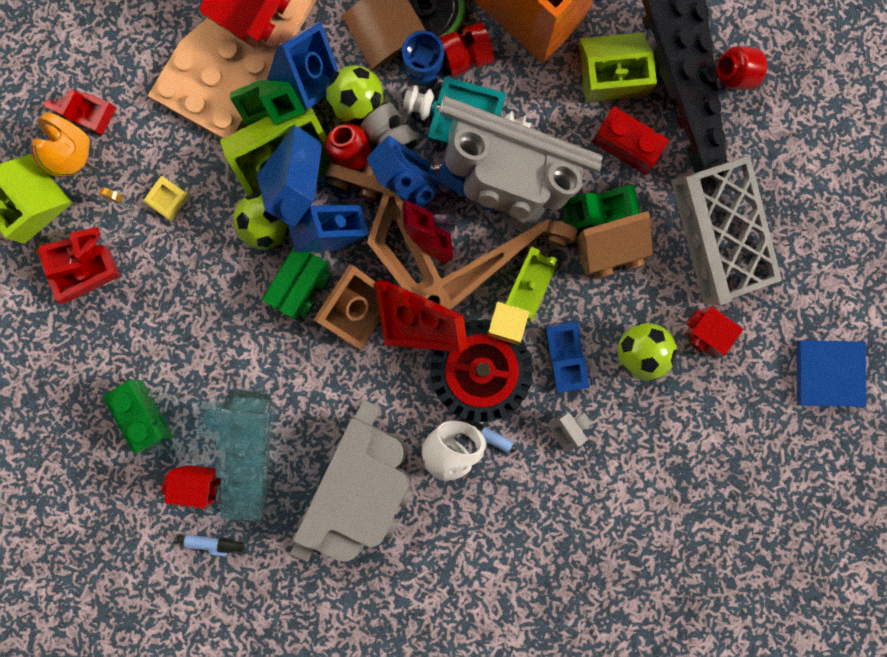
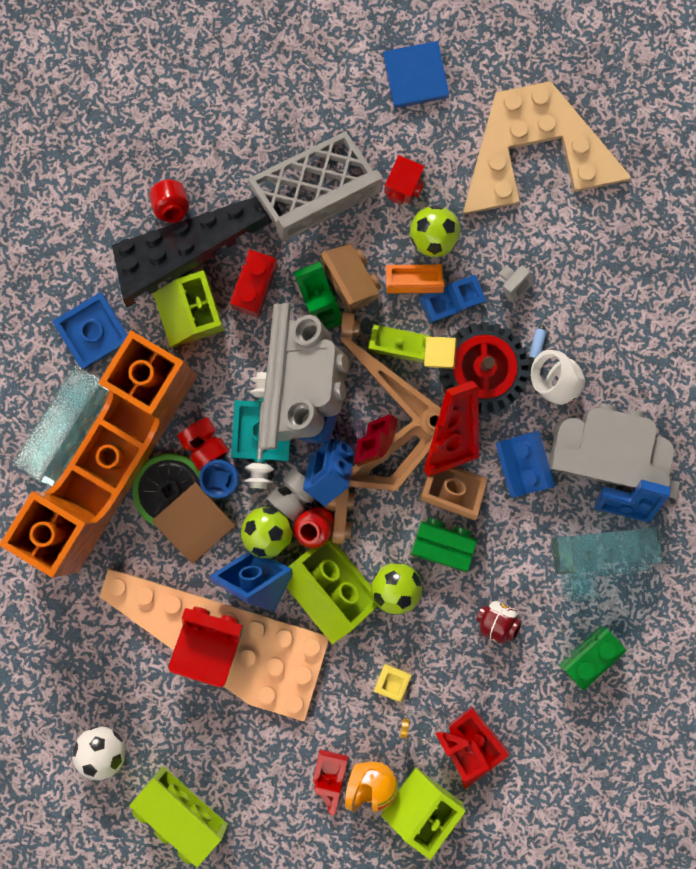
camera: 105 degrees left, 0 degrees up
(191, 486) = (641, 592): red brick -> none
(200, 324) = (499, 622): none -> dark red head
(215, 546) = (686, 565): piece -> none
(267, 99) = (287, 607): green slope -> none
(291, 176) = (356, 568): blue slope -> none
(291, 512) = (639, 505): none -> blue tile
(329, 228) = (392, 527): blue brick -> none
(365, 391) = (525, 464): none -> blue bracket
(598, 318) = (414, 278): none -> orange tile
(755, 491) = (532, 117): none -> tan wing

